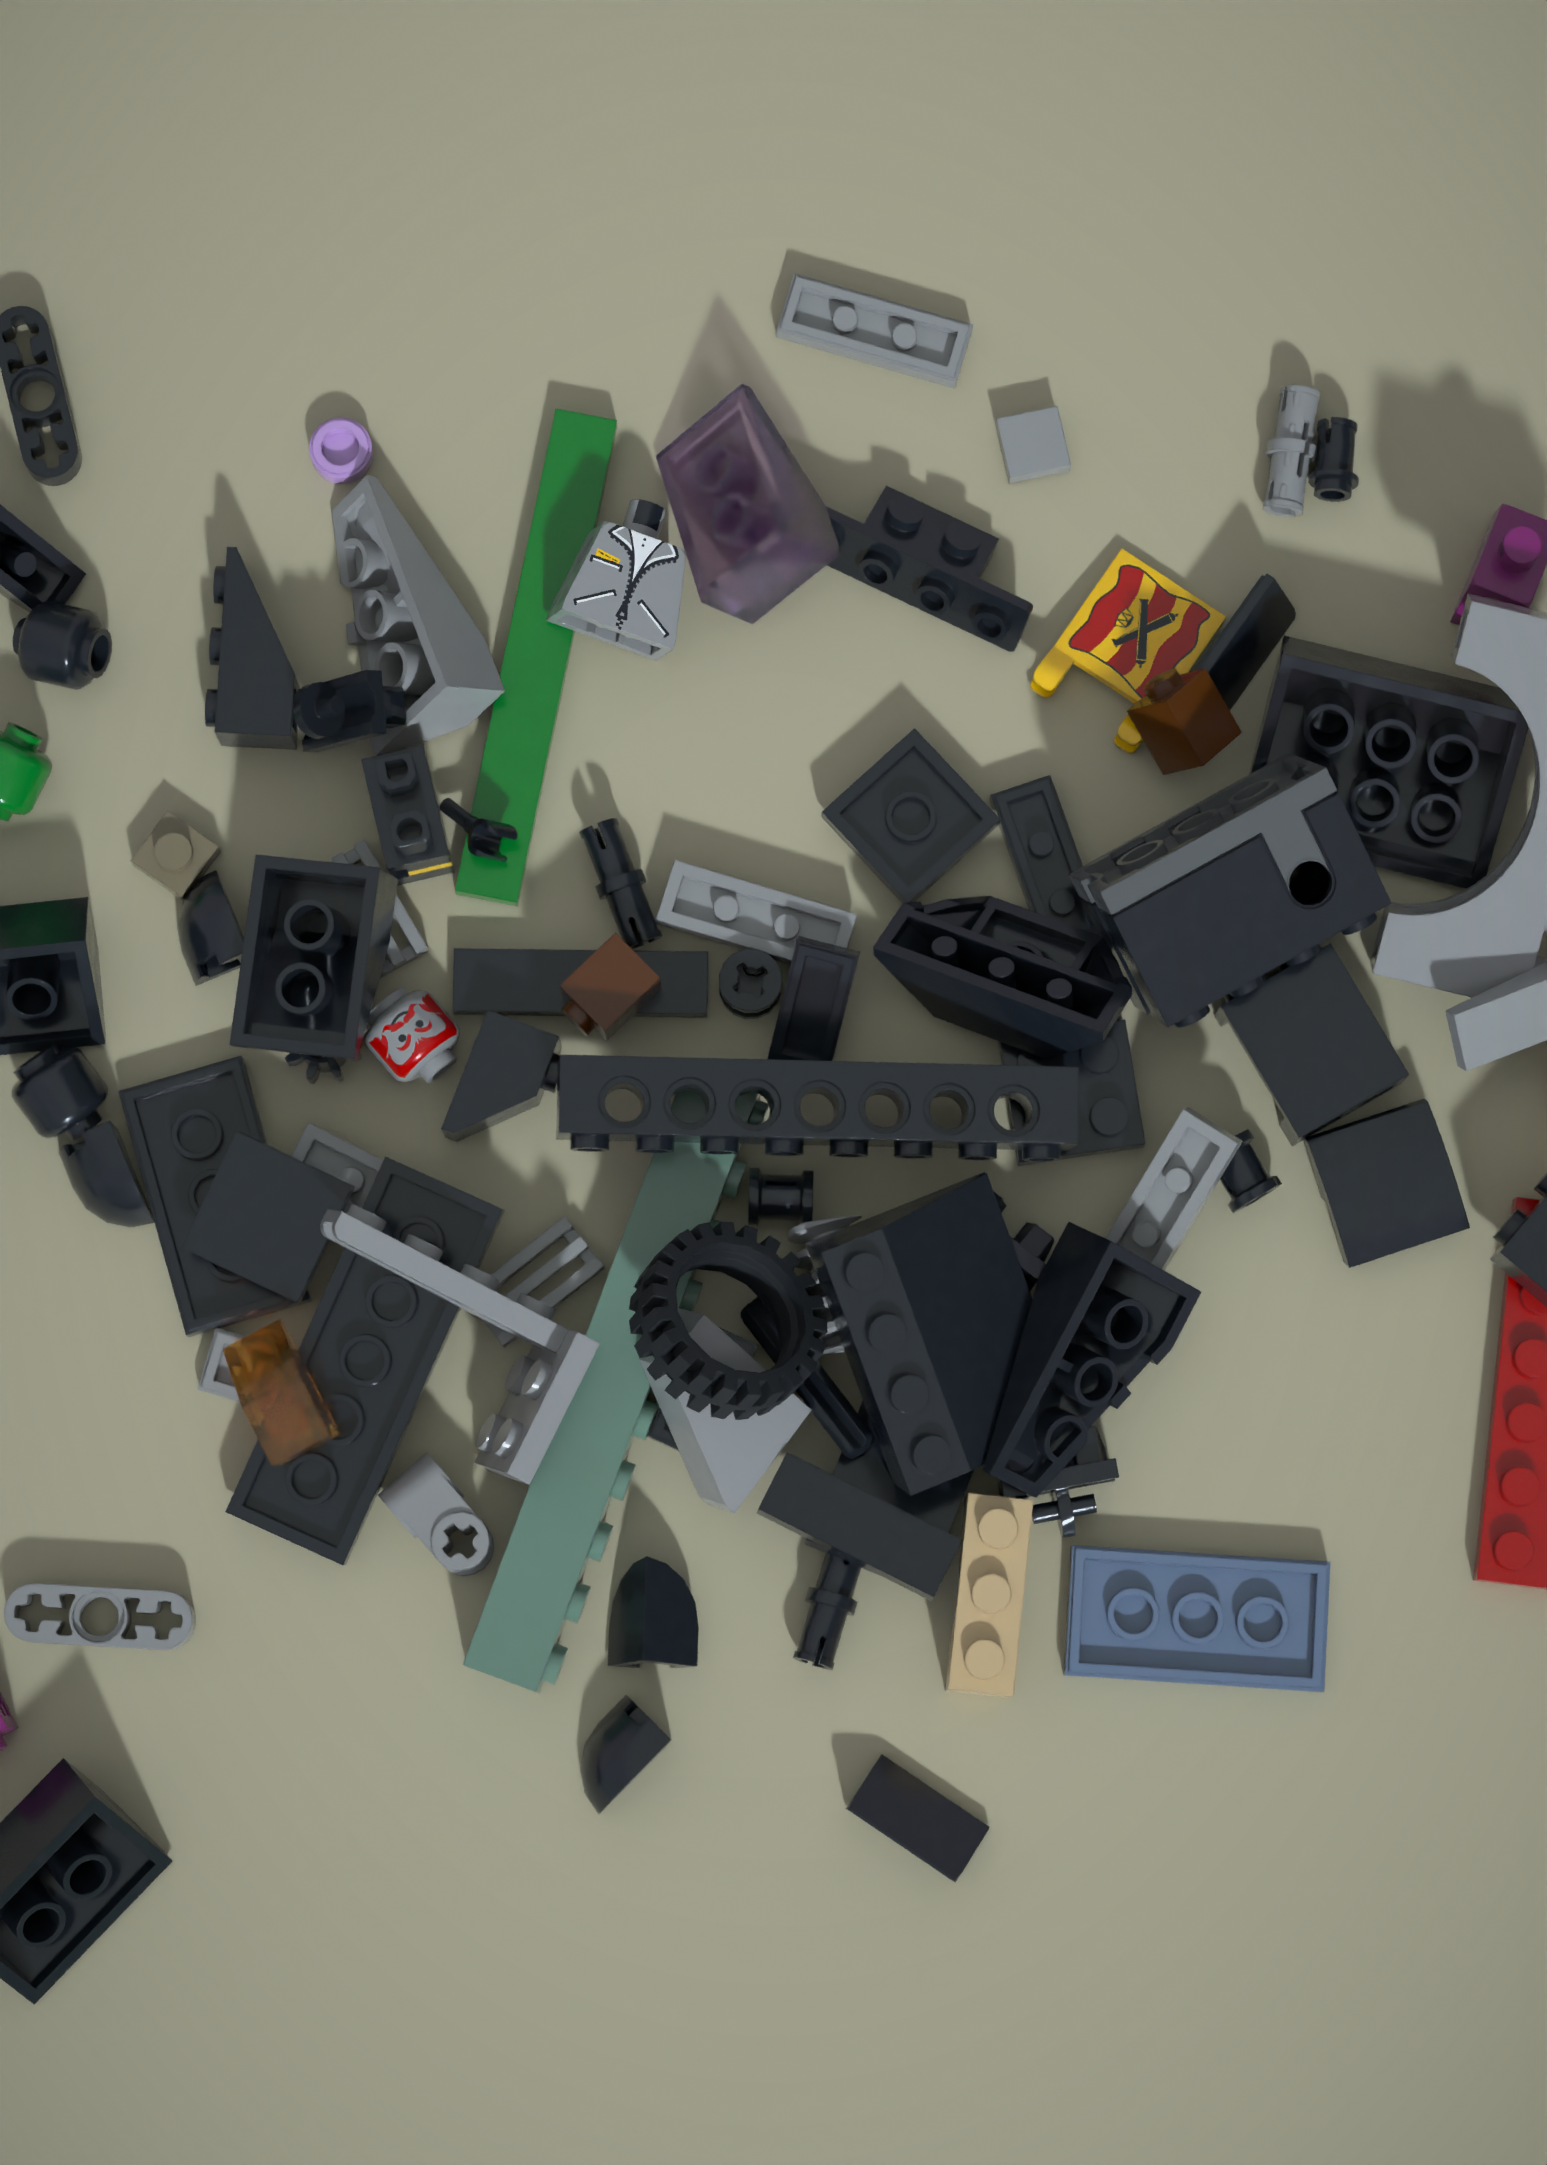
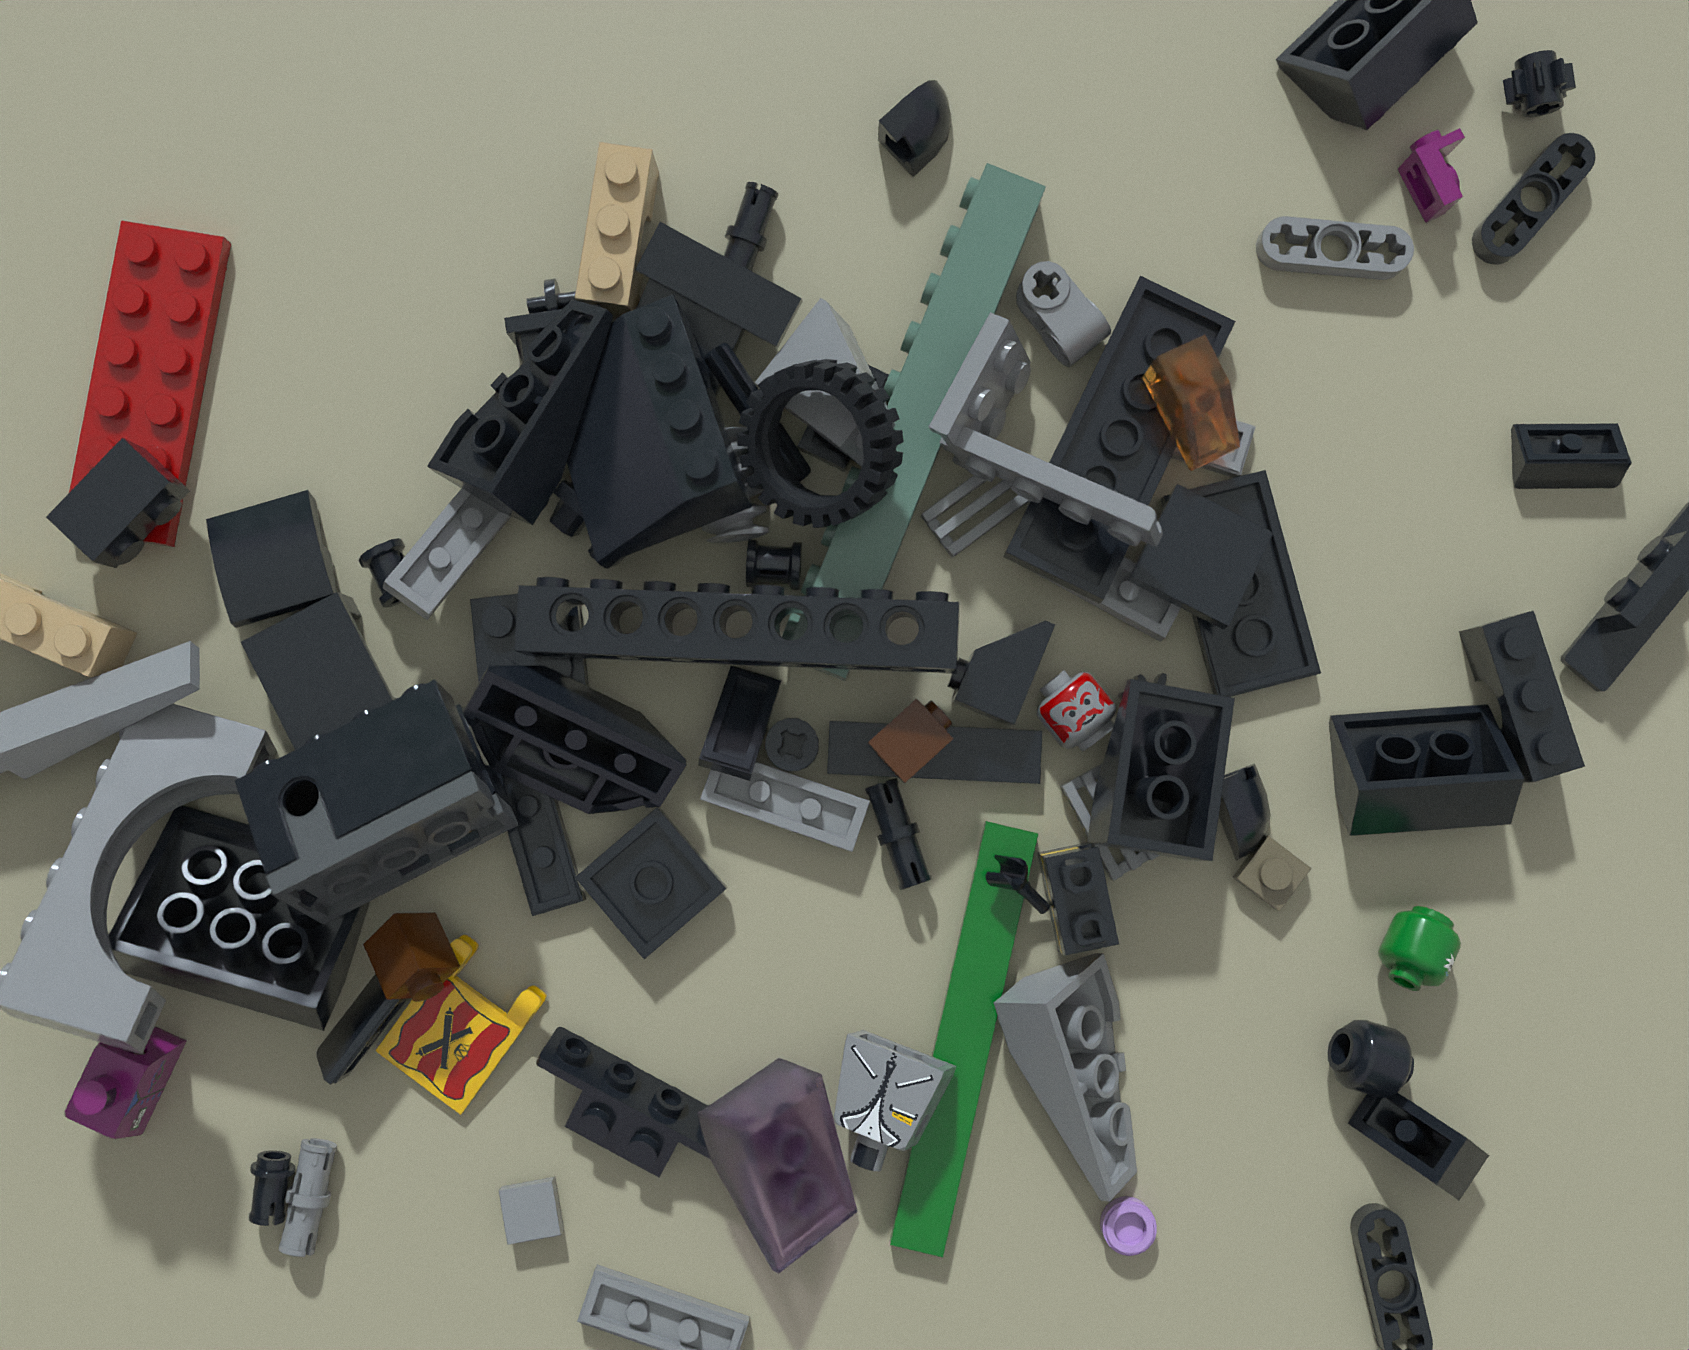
camera: 175 degrees left, 5 degrees up
(59, 1092) = (1371, 671): black head -> none
(105, 1177) = (1329, 603): black brick -> none
(254, 673) = (1205, 1021): black slope -> none
(347, 710) = (1130, 989): black hips -> none
(653, 1618) = (890, 225): black brick -> none
(918, 1818) = (685, 66): black slope -> none
(1197, 1618) = (452, 217): sand blue tile -> none

